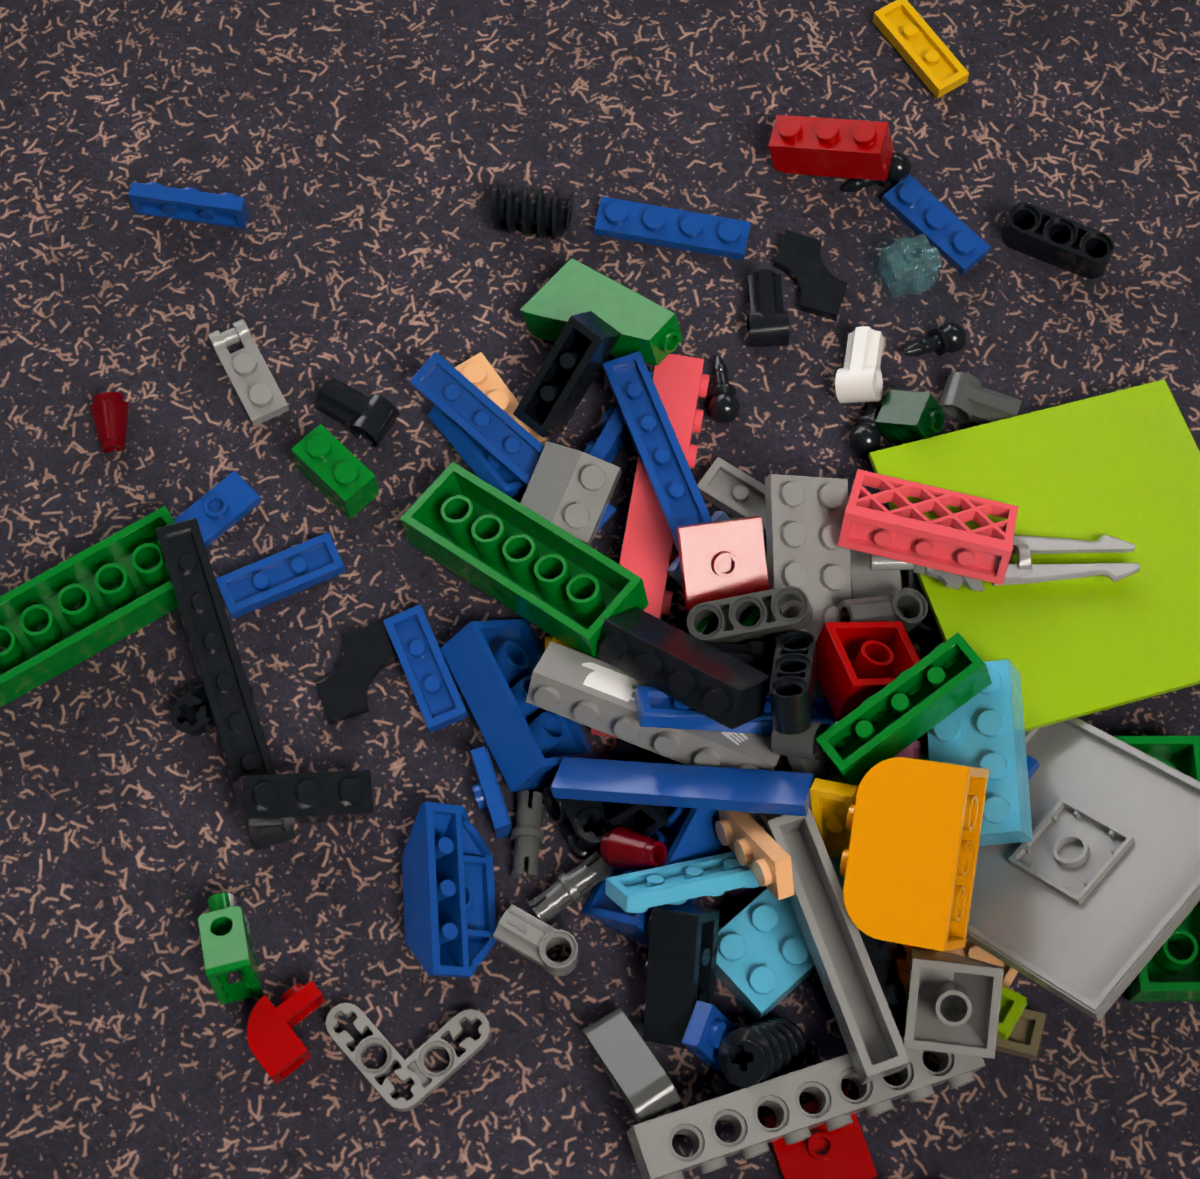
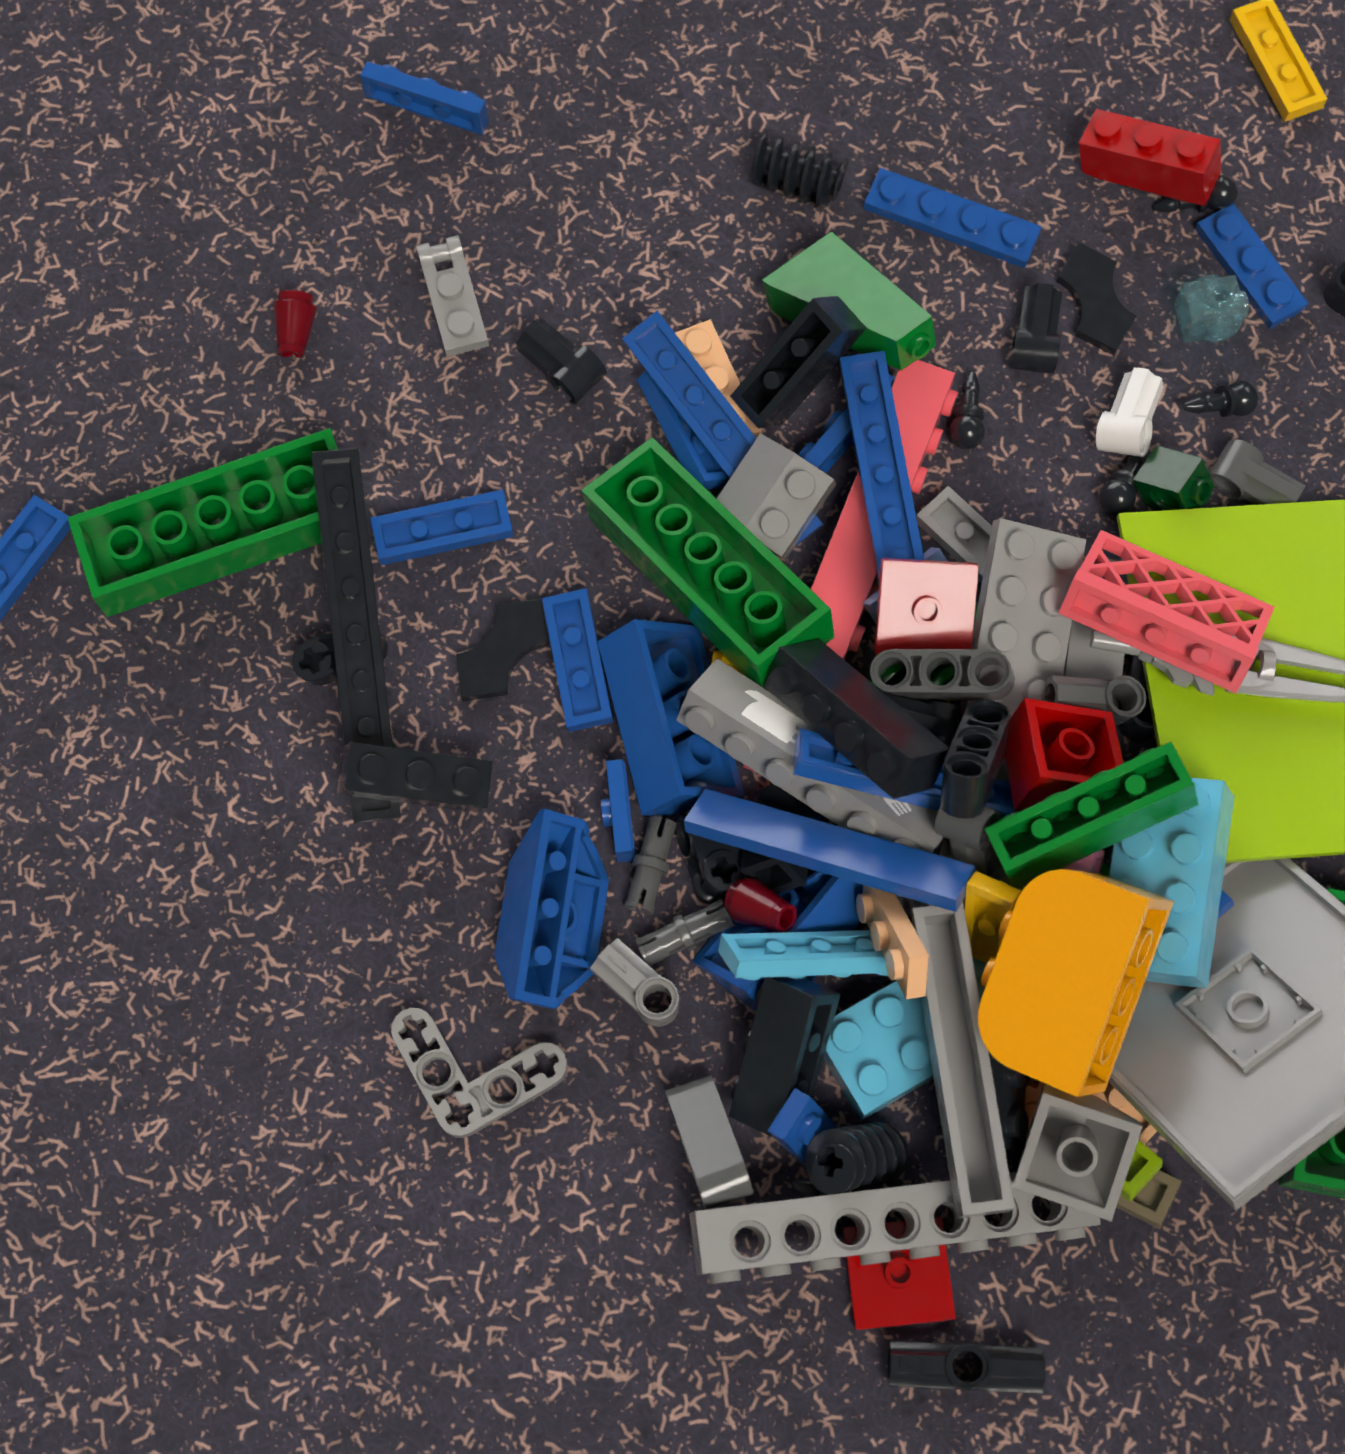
camera: 15 degrees right, 5 degrees up
(222, 507) = (392, 441): blue plate -> none
(229, 948) = (303, 924): green torso -> none
(271, 1030) = (332, 1019): red brick -> none
(335, 471) = (523, 423): green brick -> none

